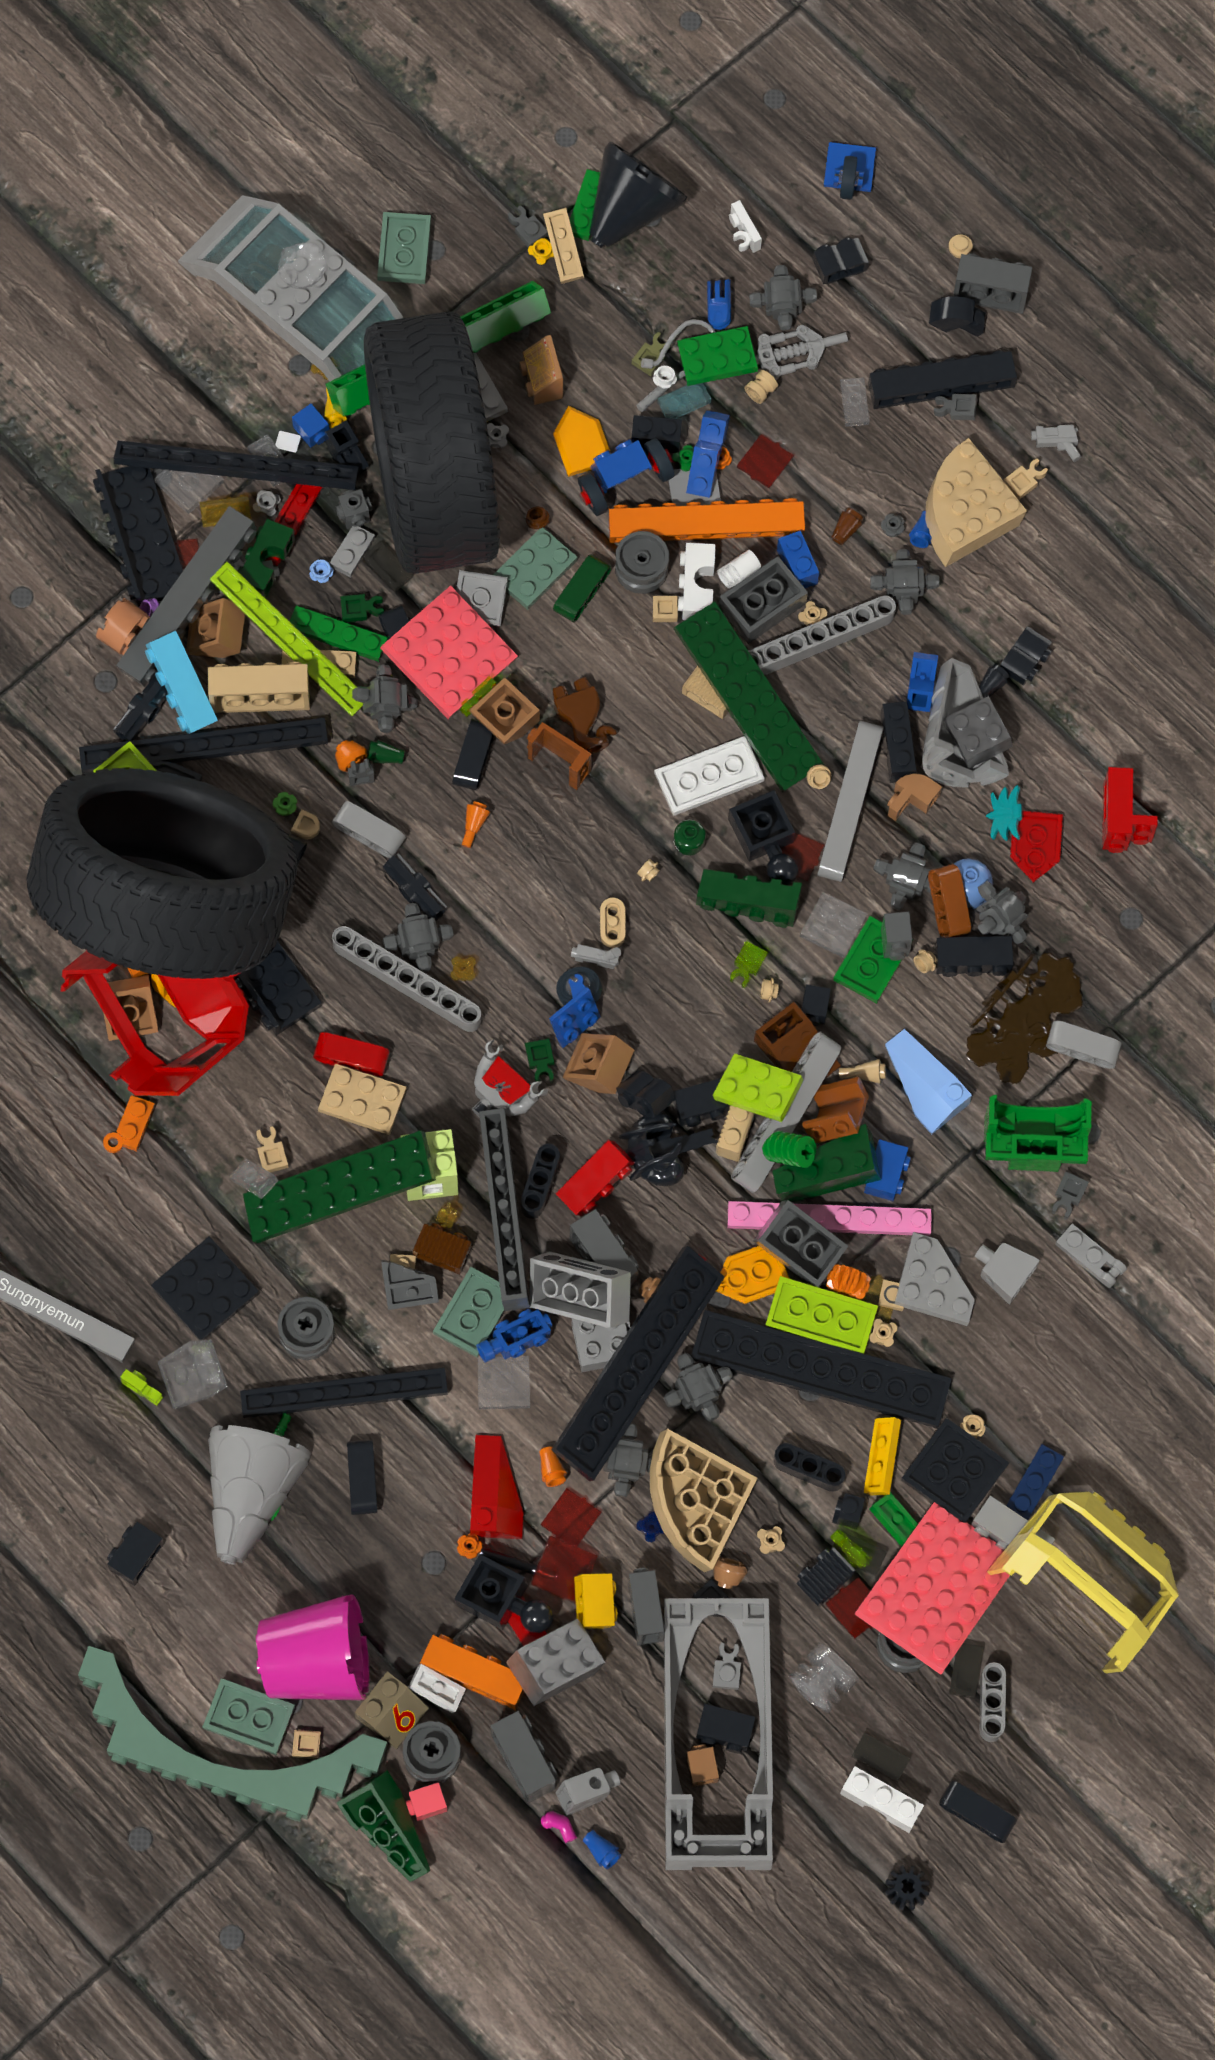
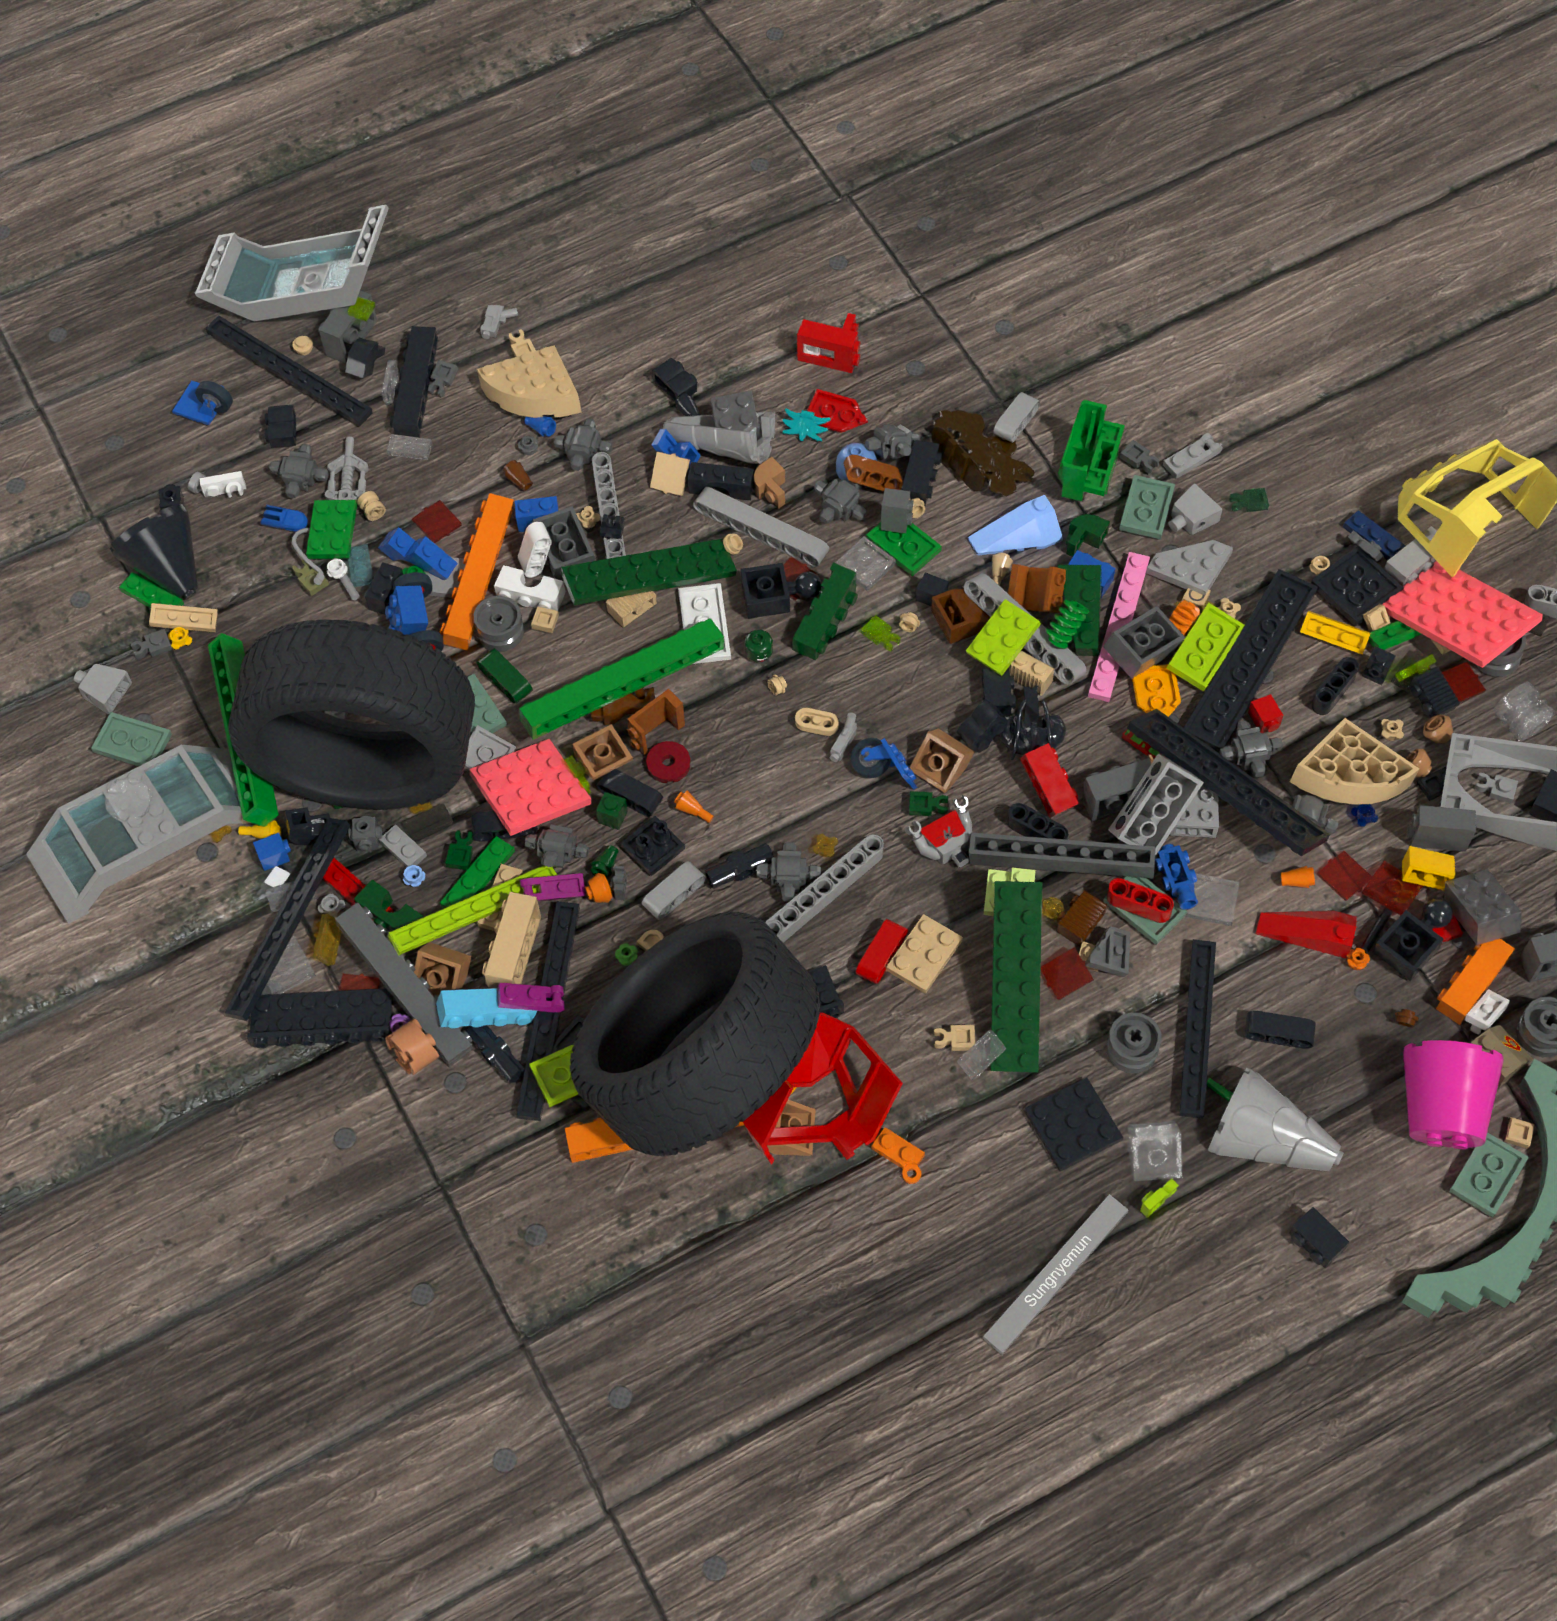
camera: 70 degrees left, 10 degrees down
(201, 720) = (530, 997): none -> magenta plate
(336, 708) = (555, 887): none -> magenta plate
(372, 1246) = (1066, 973): none -> clear red piece
(408, 1606) = (1406, 1018): none -> reddish brown plate
(416, 795) = (653, 845): none -> black plate
(444, 742) = (612, 811): none -> dark green brick
(459, 197) = (103, 686): none -> light grey torso
(475, 1289) = (1145, 909): none -> red beam
(523, 771) = (664, 751): none -> dark red tile
(600, 705) = (621, 678): none -> green brick
(709, 189) = (170, 496): none -> black brick
(745, 198) = (194, 482): none -> light grey tile
(750, 1397) = (1265, 714): none -> red brick
(780, 1589) = (1438, 729): none -> medium nougat cone
(794, 641) = (612, 527): none -> black tile
(891, 684) = (669, 473): none -> tan piece
(914, 1500) = (1376, 618): none -> tan tile
(919, 243) = (289, 370): none -> black plate
(932, 353) = (390, 382): none -> clear plate
(947, 1155) = (1086, 529): none -> dark green brick
(1000, 1217) = (1147, 507): none -> sand green plate
(1002, 289) = (362, 309): none -> clear neon green tile
(1009, 1475) = (1371, 548): none -> dark grey plate
(1035, 194) = (290, 275): none -> light grey window
(1043, 1335) = (1251, 499): none -> clear green plate

